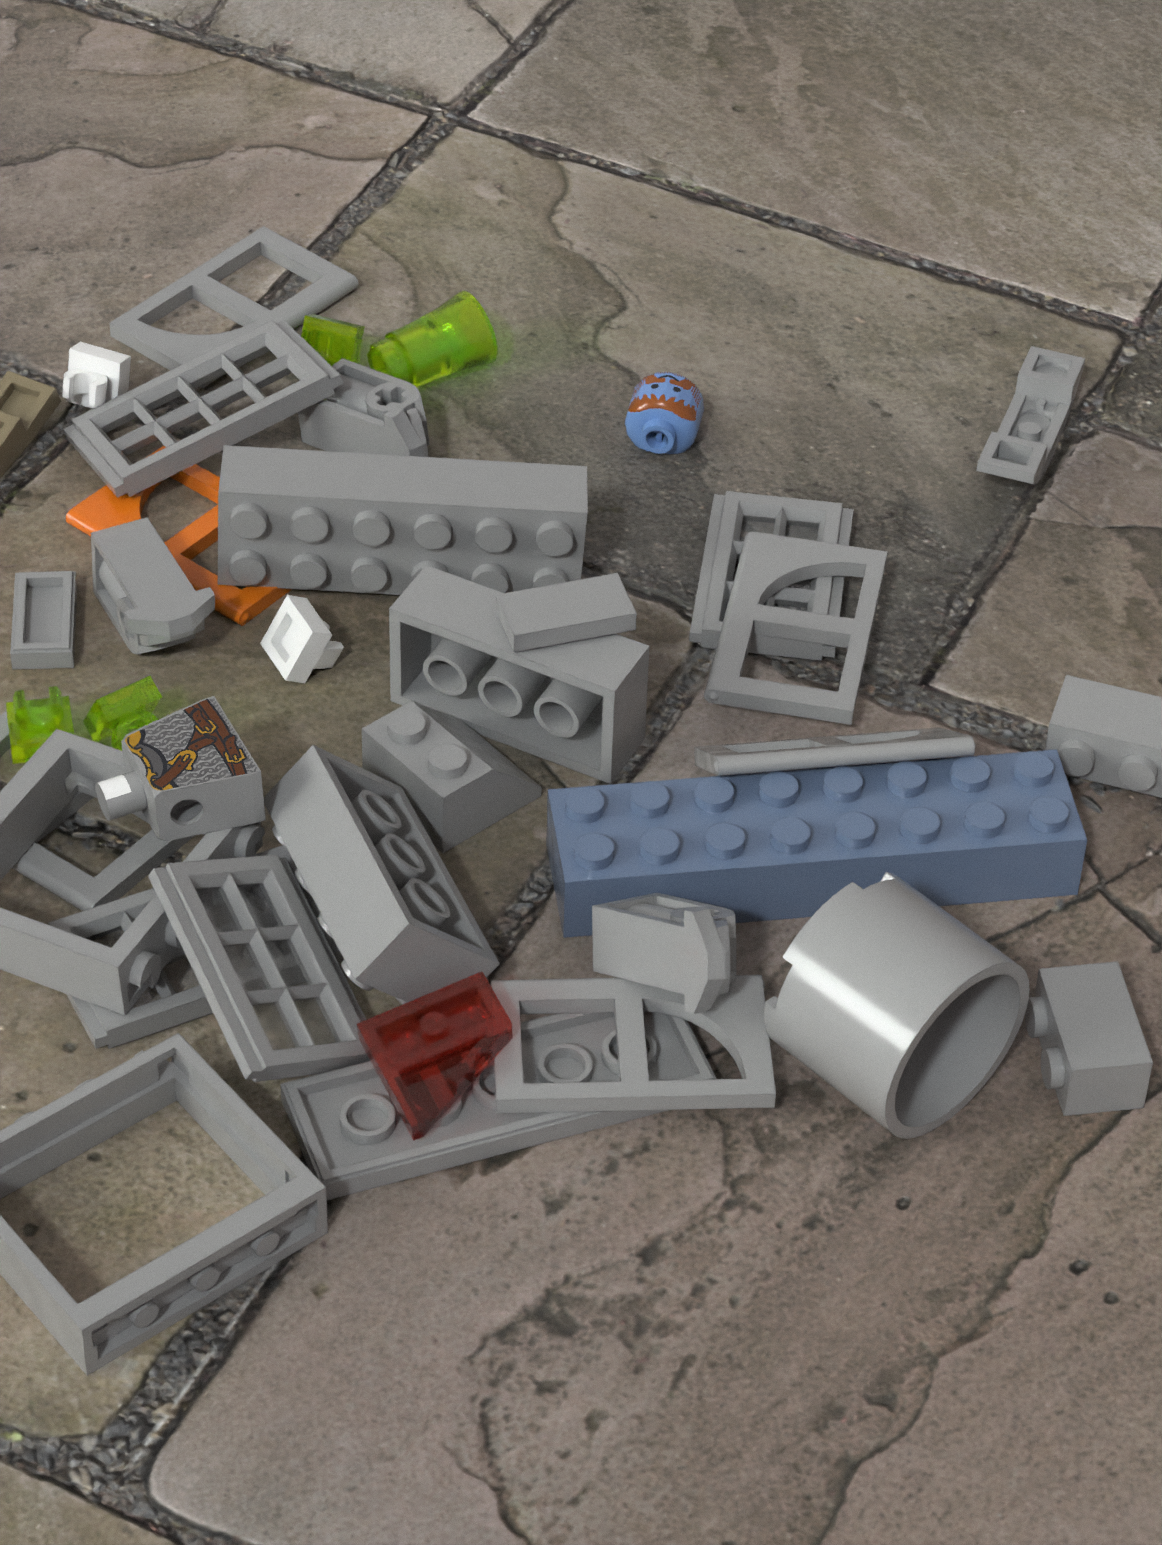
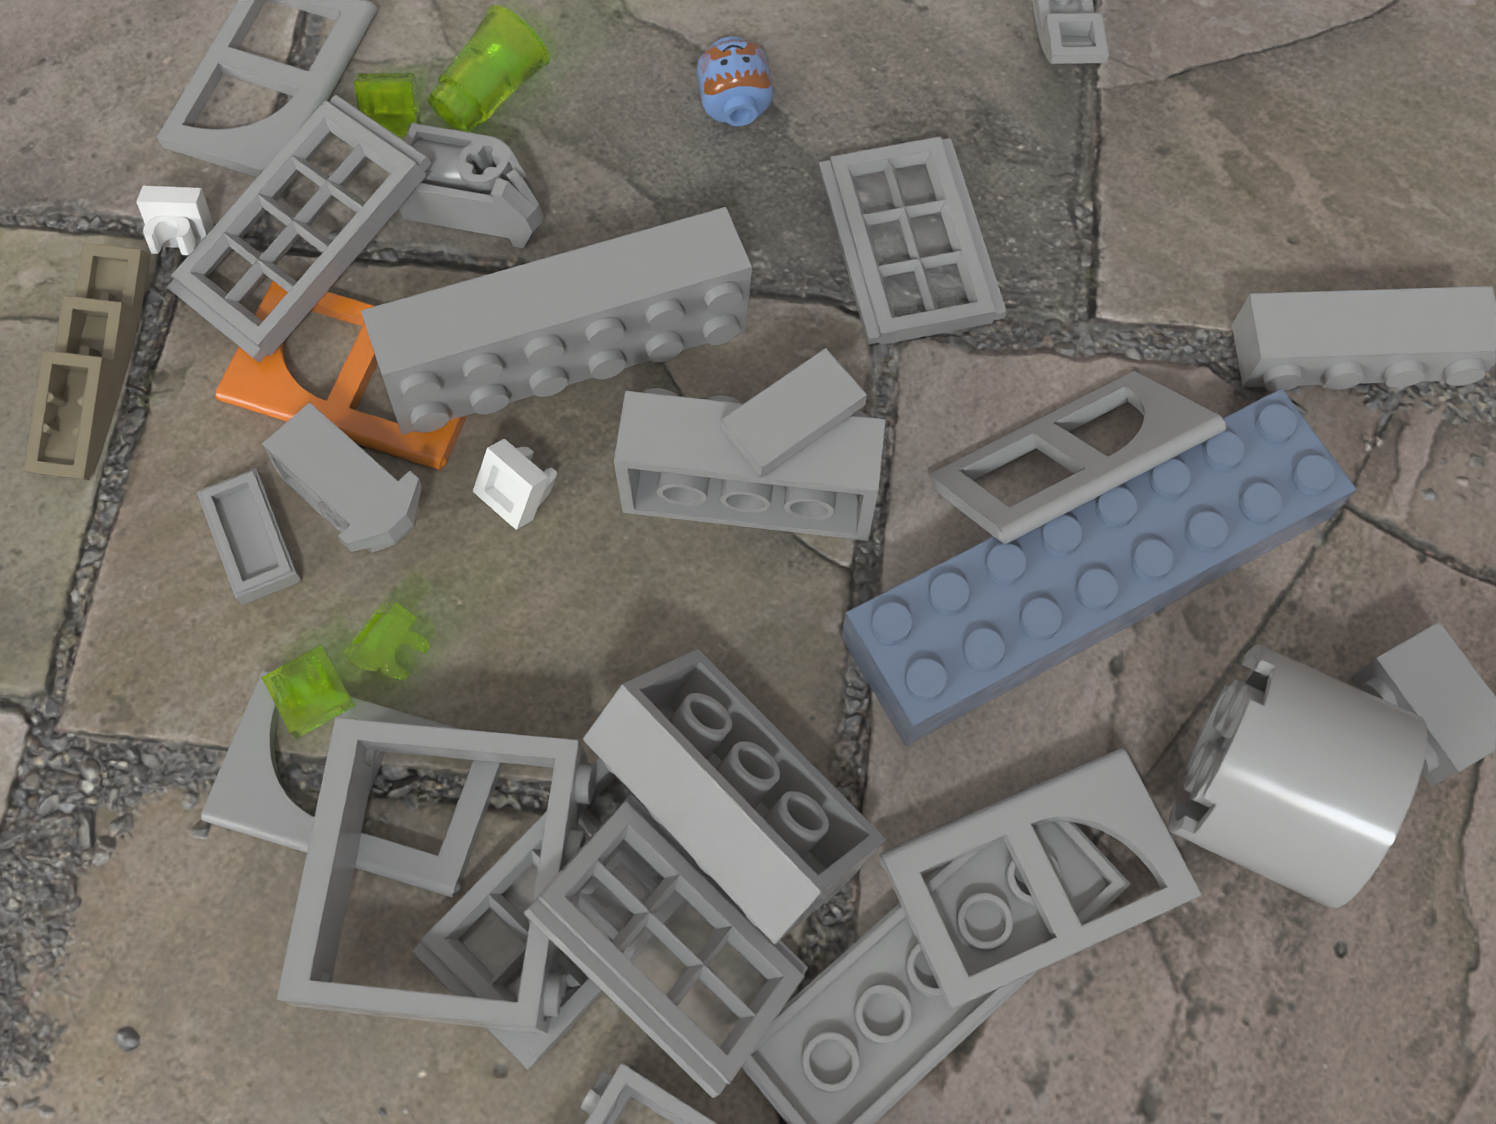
camera: 20 degrees left, 25 degrees up
(186, 775) = (503, 759): torso -> none
(435, 1048) = (873, 974): clear red wing -> none
(446, 772) = (721, 598): light grey slope -> none
(667, 945) = (1046, 765): light grey piece -> none
(765, 568) = (910, 239): light grey window -> none

